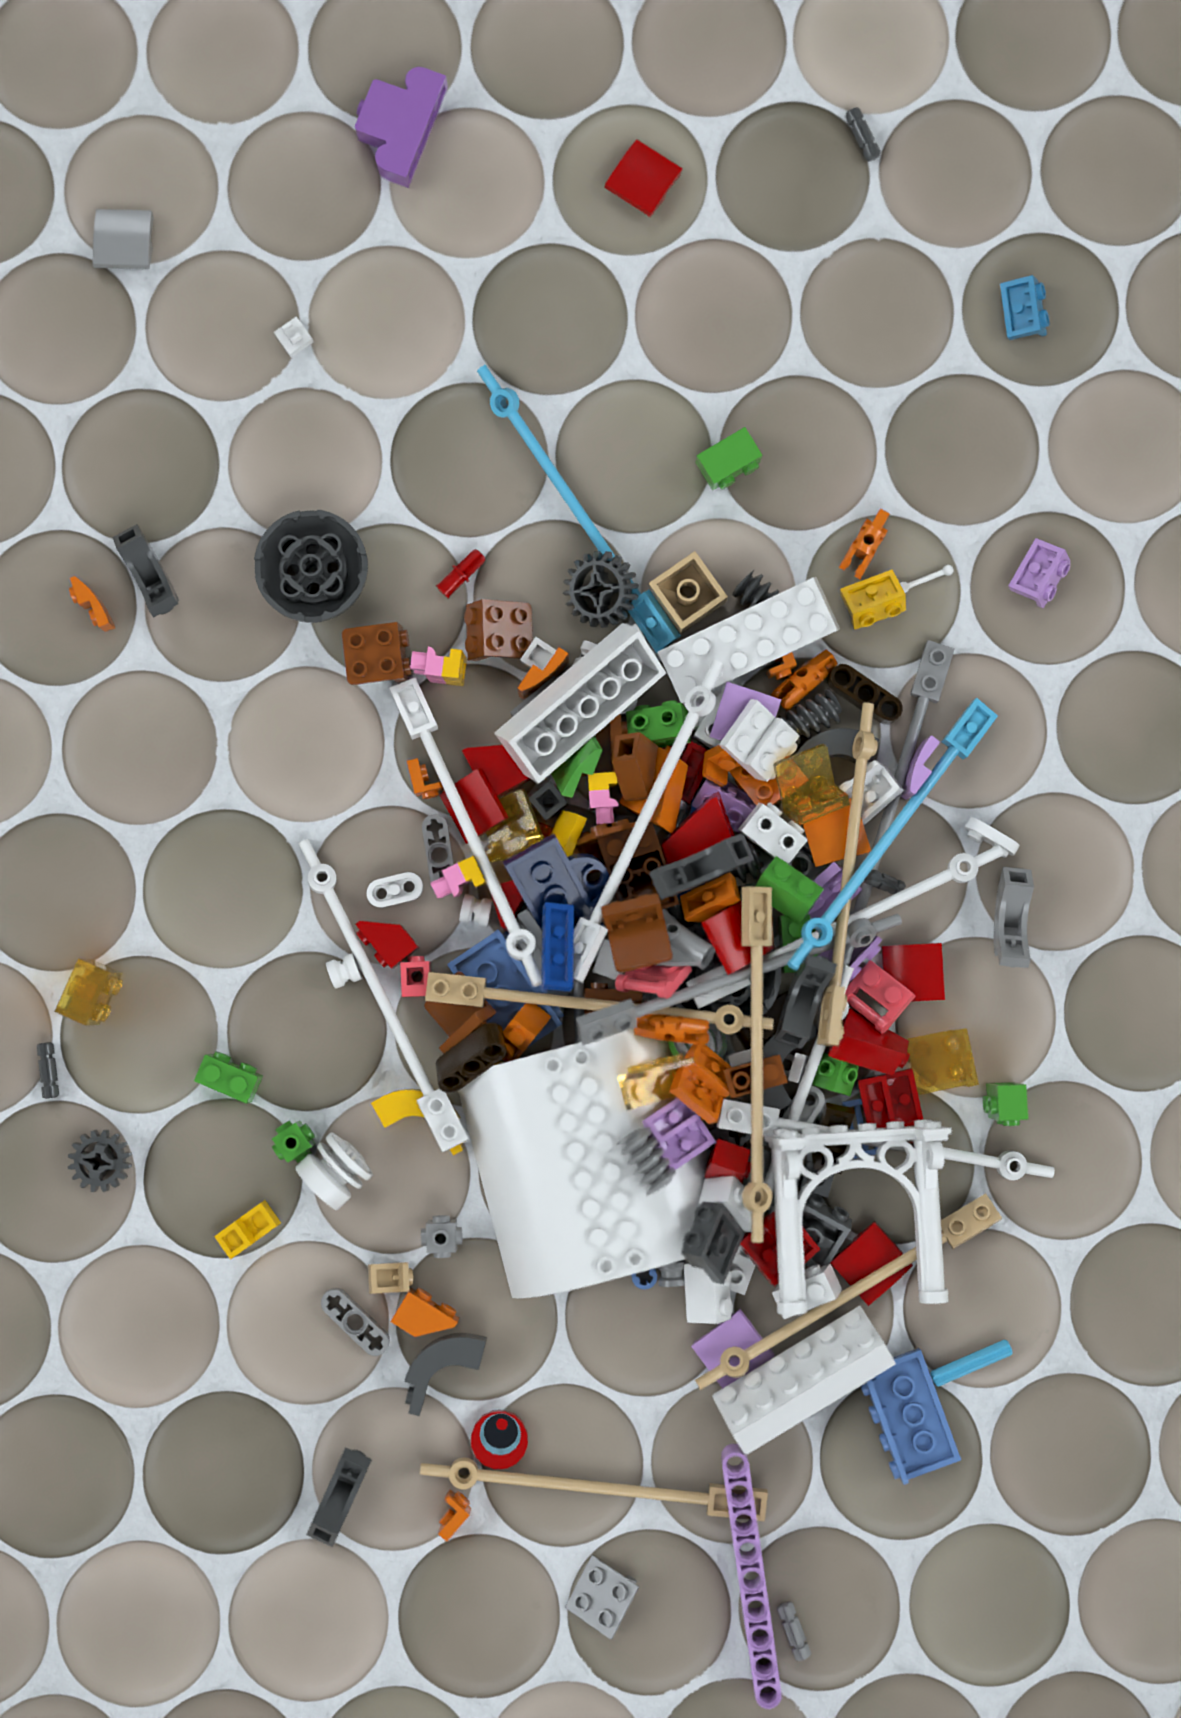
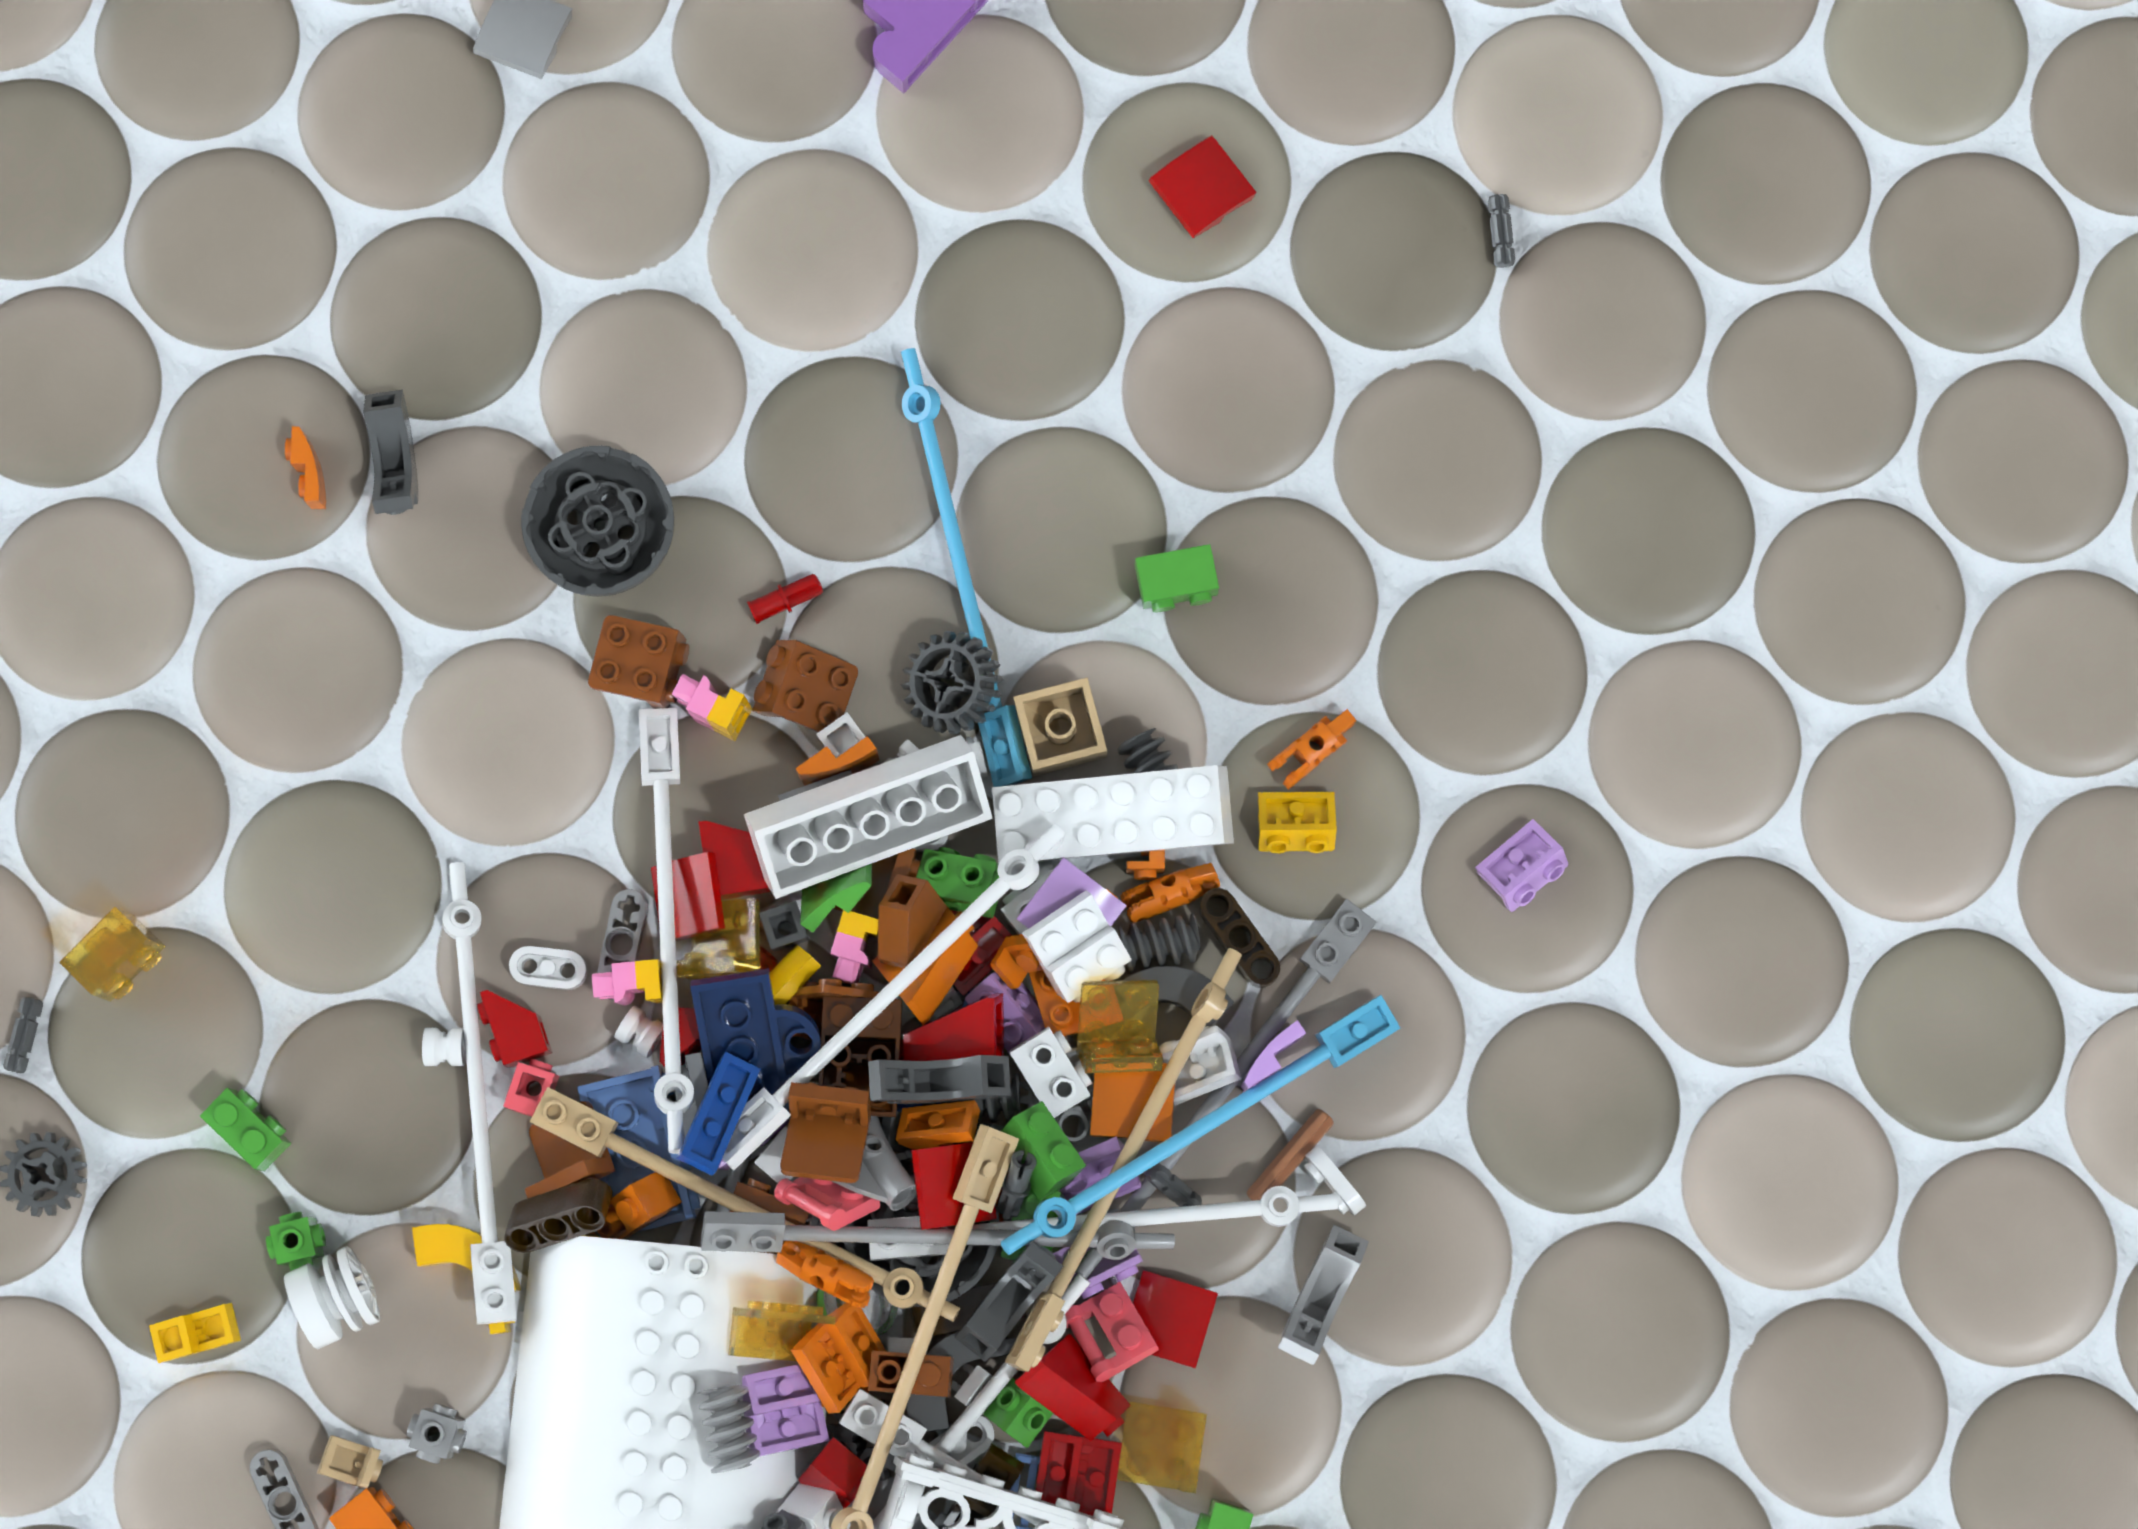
camera: 20 degrees right, 5 degrees down
(293, 337) = (688, 227): white tile -> none
(418, 776) = (632, 834): orange bracket -> none
(780, 919) = (1016, 1185): none -> dark grey axle
(947, 570) = (1343, 820): white hinge -> none
(954, 830) = (1292, 1154): none -> nougat axle
(1024, 307) = (1626, 522): dark azure bracket -> none

